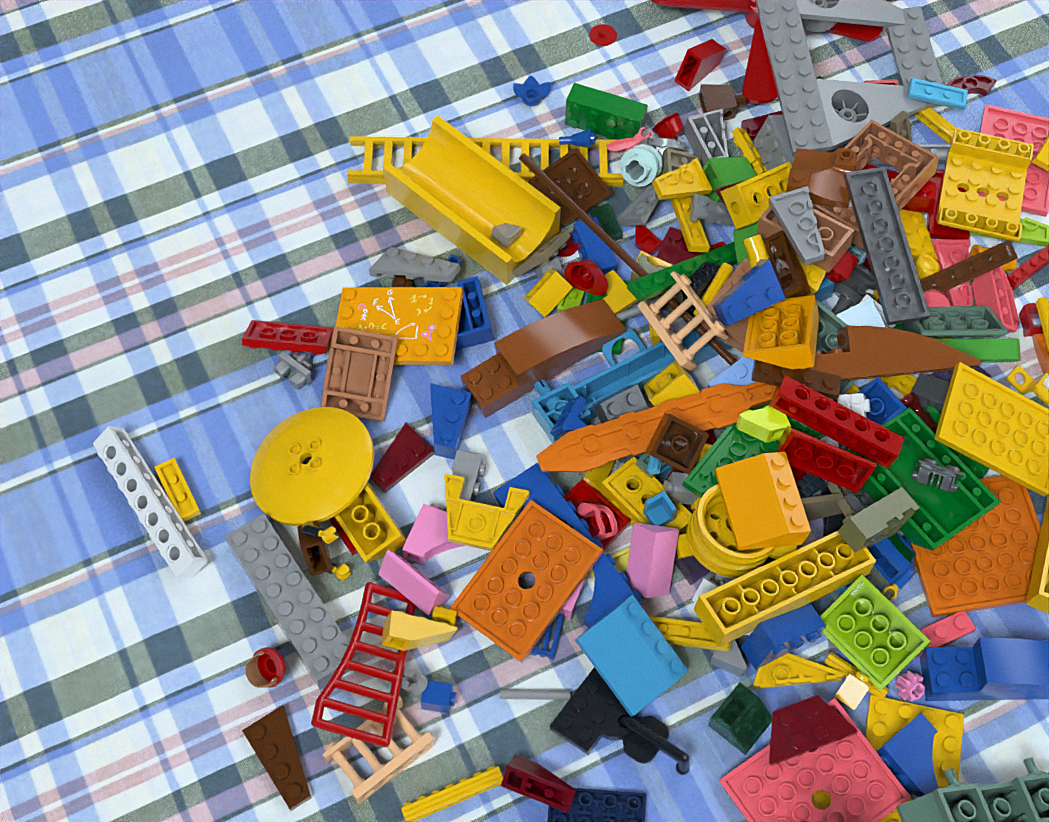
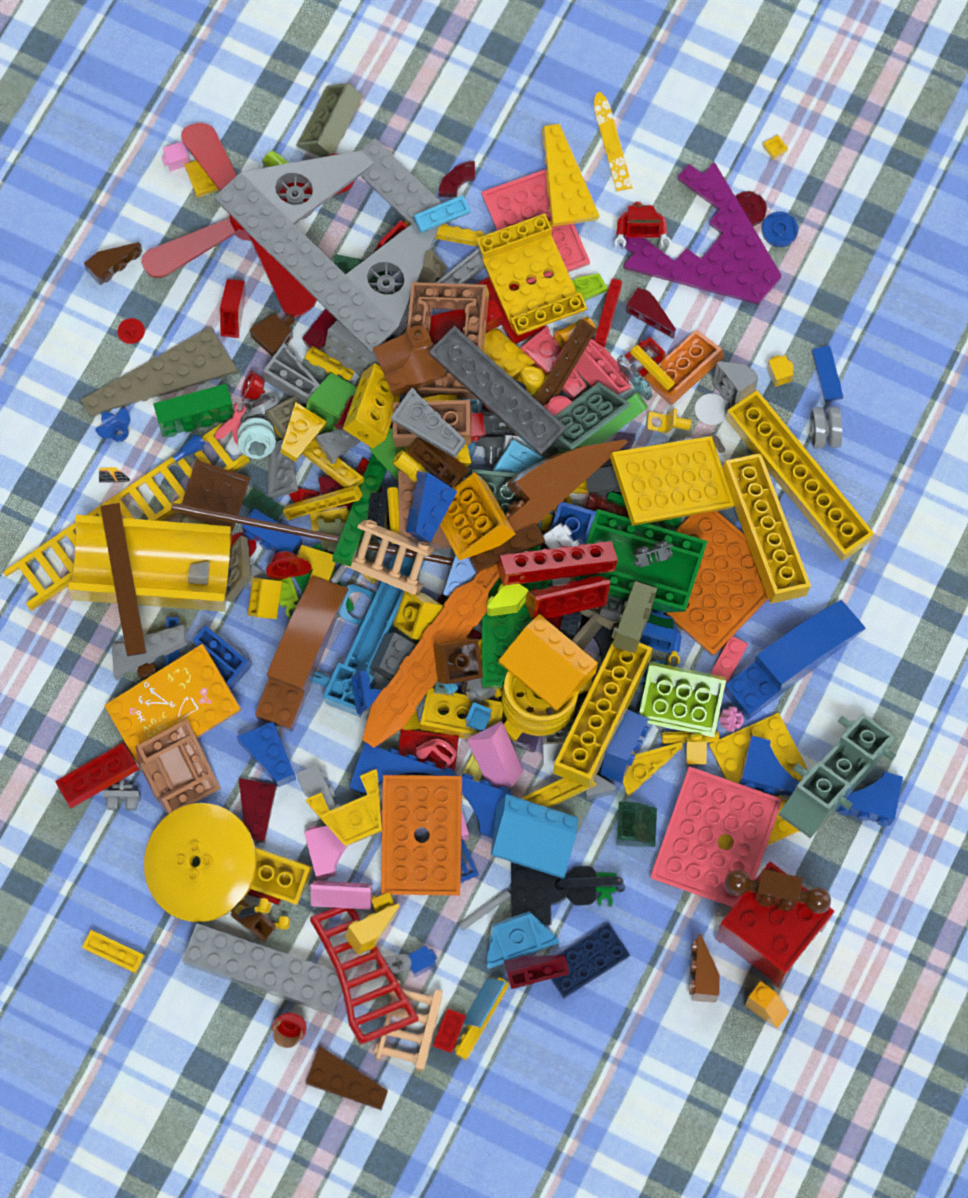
camera: 35 degrees left, 10 degrees up
(150, 502) = (112, 972): white brick -> none
(412, 783) = (449, 1031): none -> red plate
(433, 189) = (123, 579): none -> reddish brown tile
(464, 779) = (484, 1002): none -> dark azure window
(499, 125) = (112, 474): none -> sticker
(546, 742) = (517, 938): none -> dark azure wing
(631, 81) = (182, 366): none -> dark tan wing
(659, 246) = (322, 502): none -> yellow piece
(666, 761) = (605, 891): none -> green plate
(805, 728) = (683, 802): dark red wing -> none
(1025, 329) = (635, 378): none -> clear light blue tile

